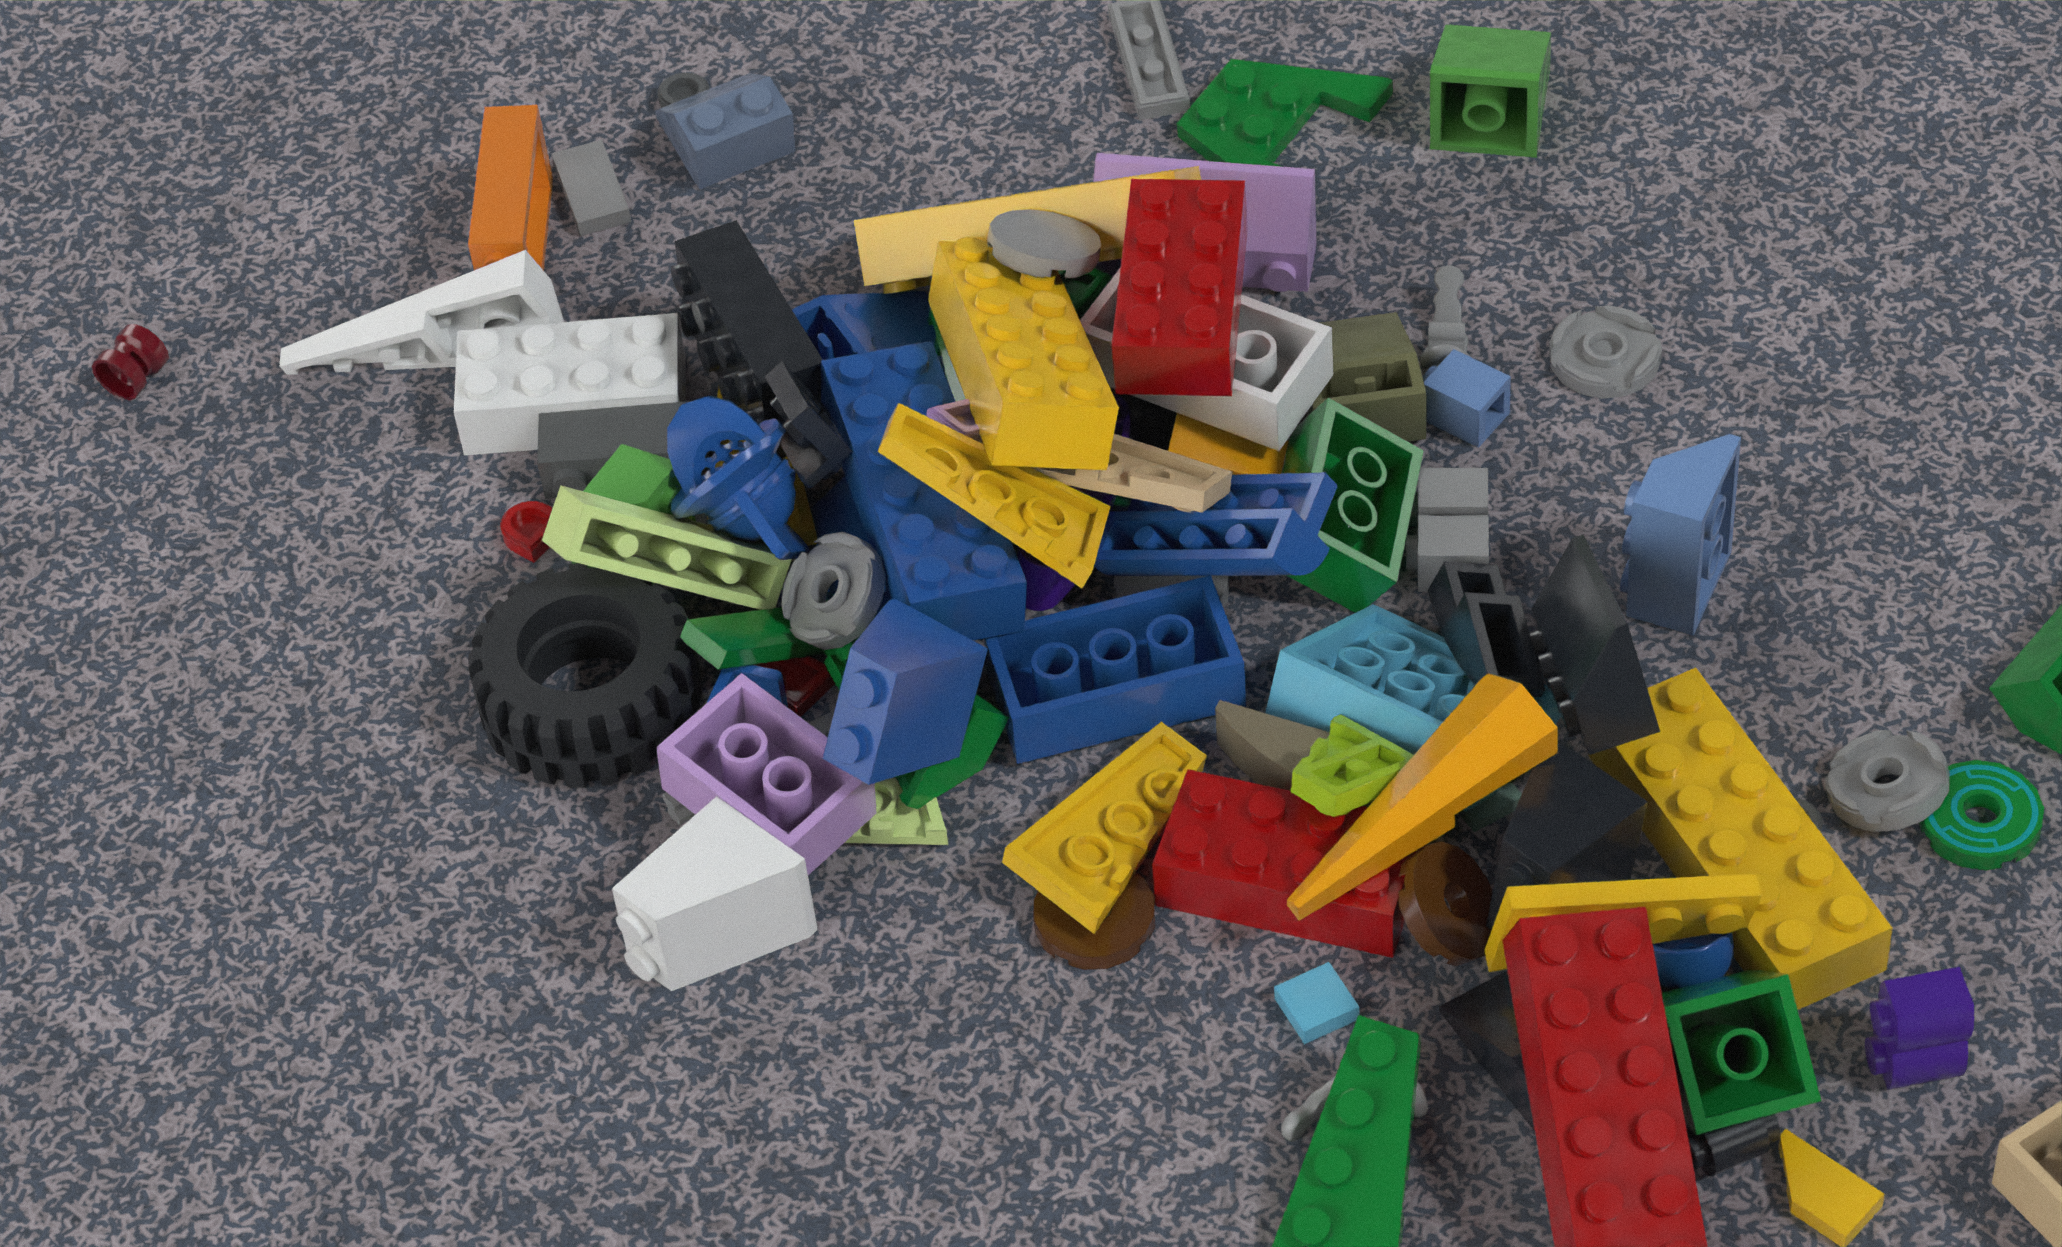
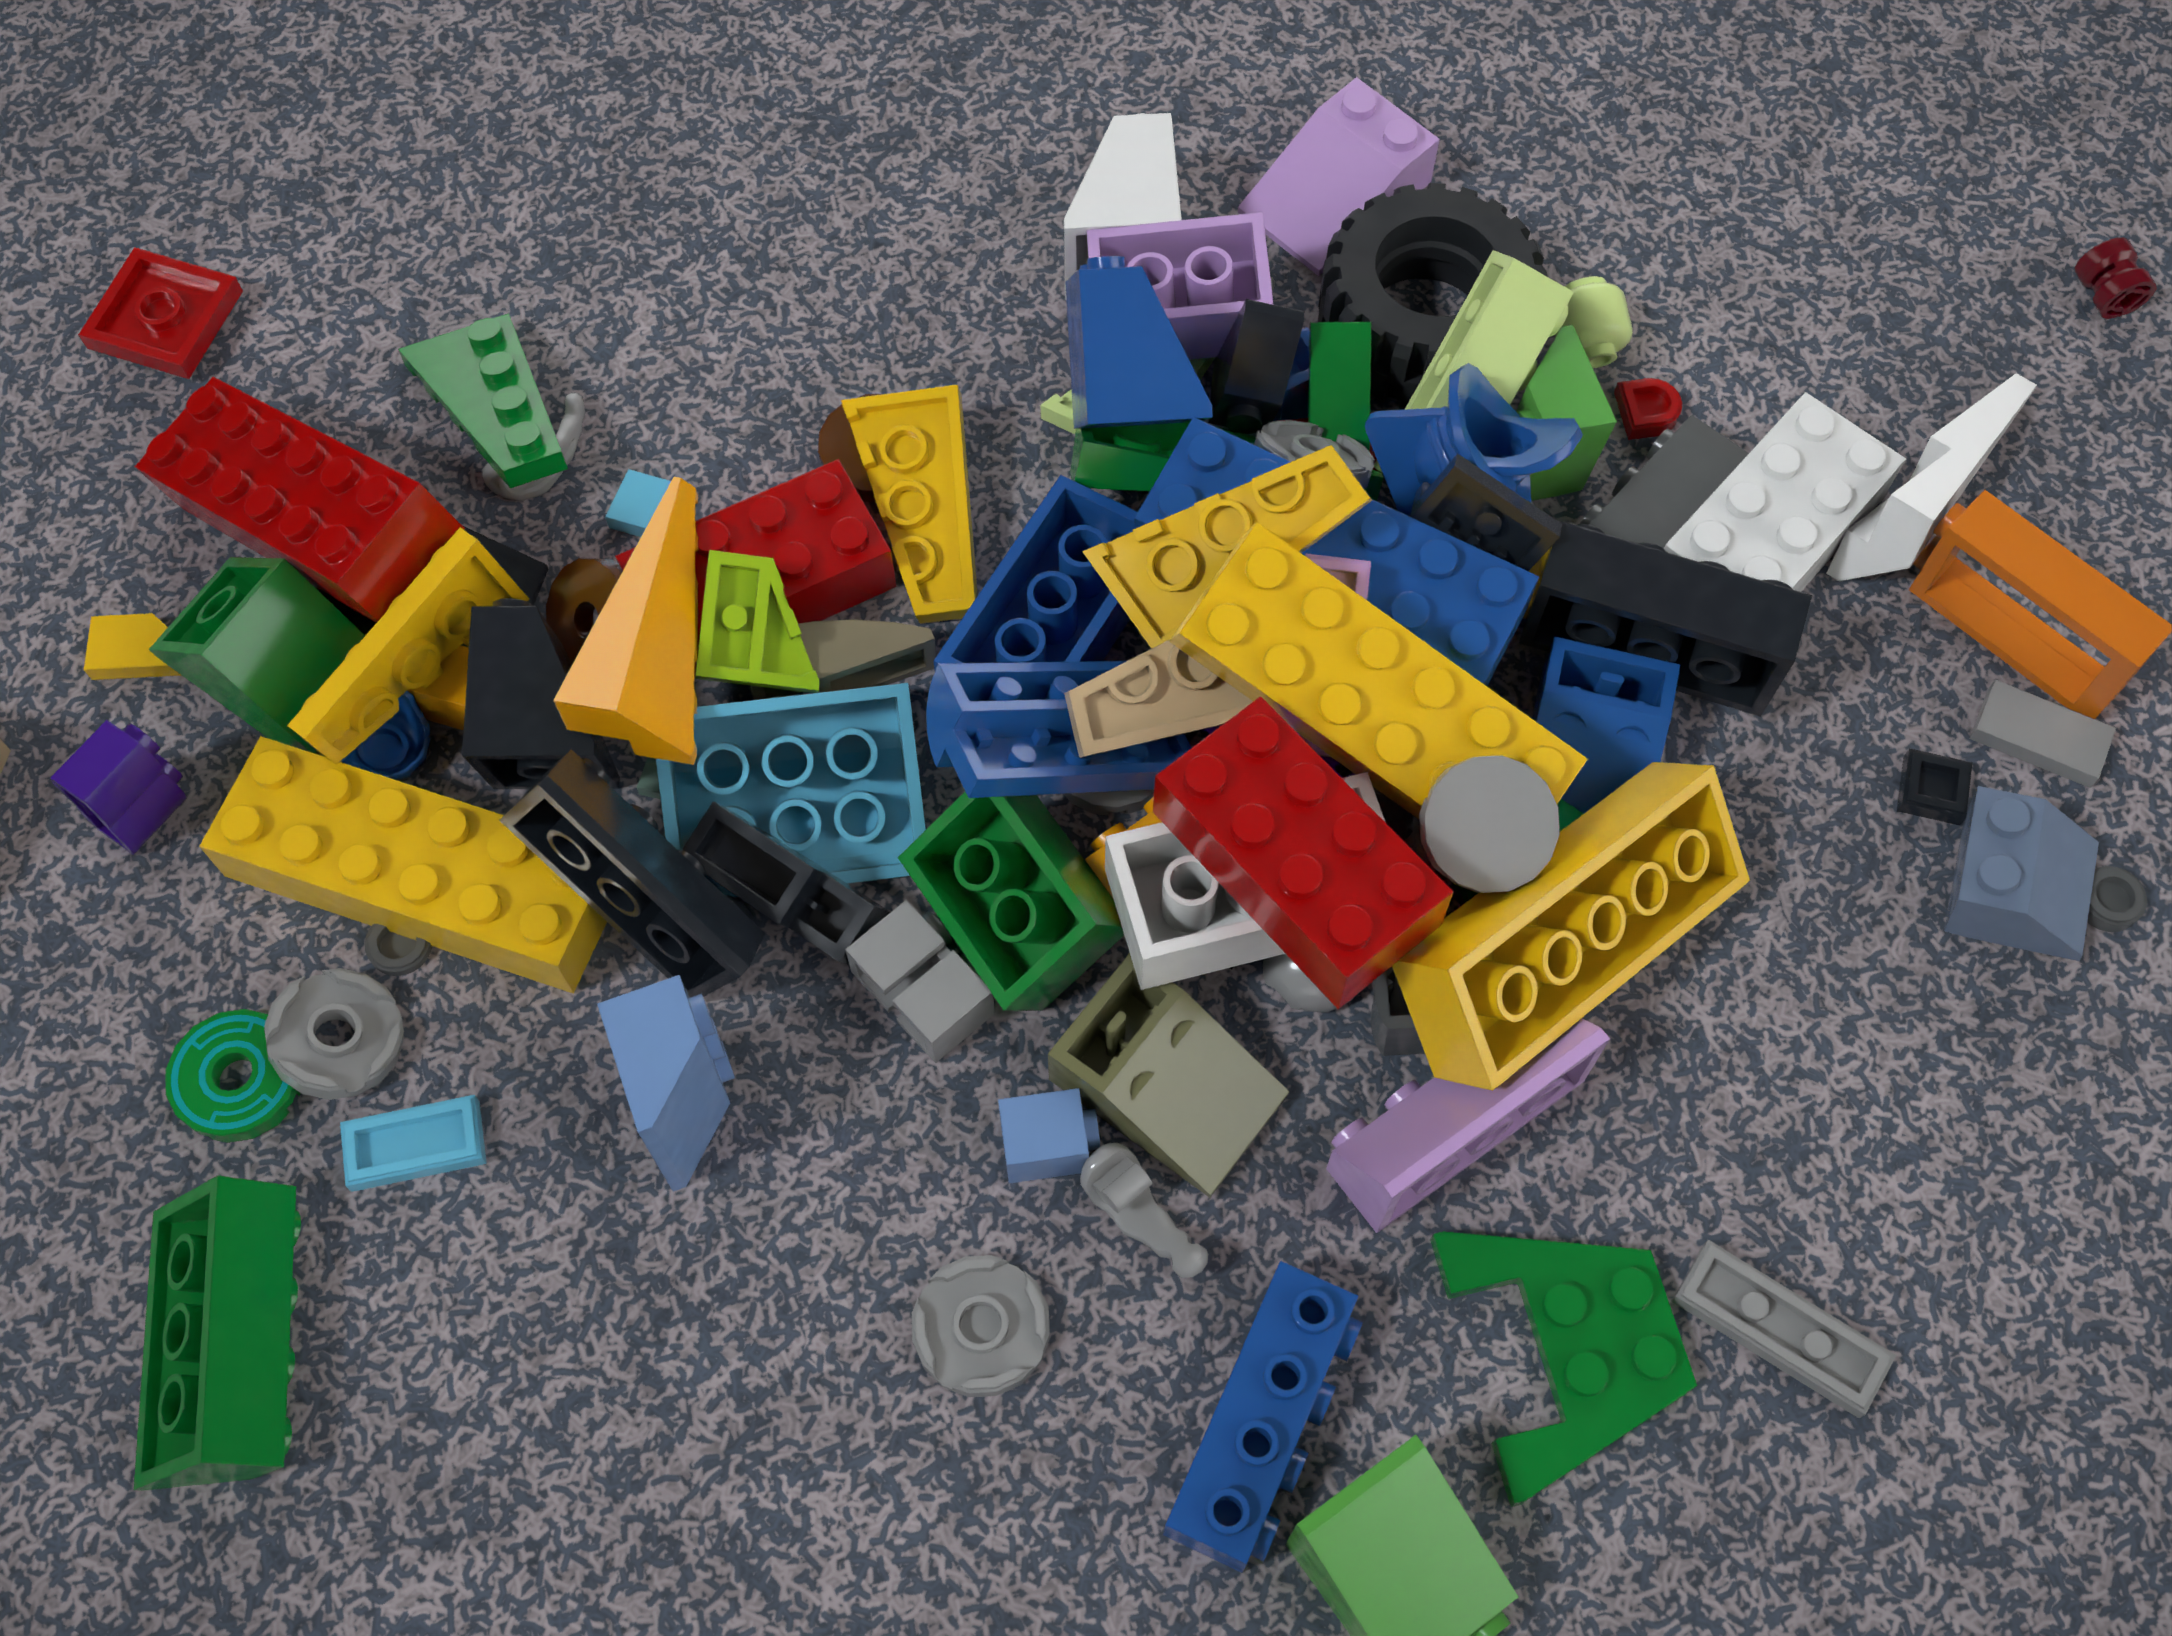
camera: 130 degrees right, 15 degrees up
(484, 583) = (1600, 318): none -> yellowish green head
(509, 835) = (1334, 165): none -> lavender slope
(693, 208) = (1934, 787): none -> black tile
(791, 677) = (1254, 366): none -> black slope
(1488, 195) = (1261, 1417): none -> blue brick
(1885, 688) = (412, 1143): none -> medium azure tile

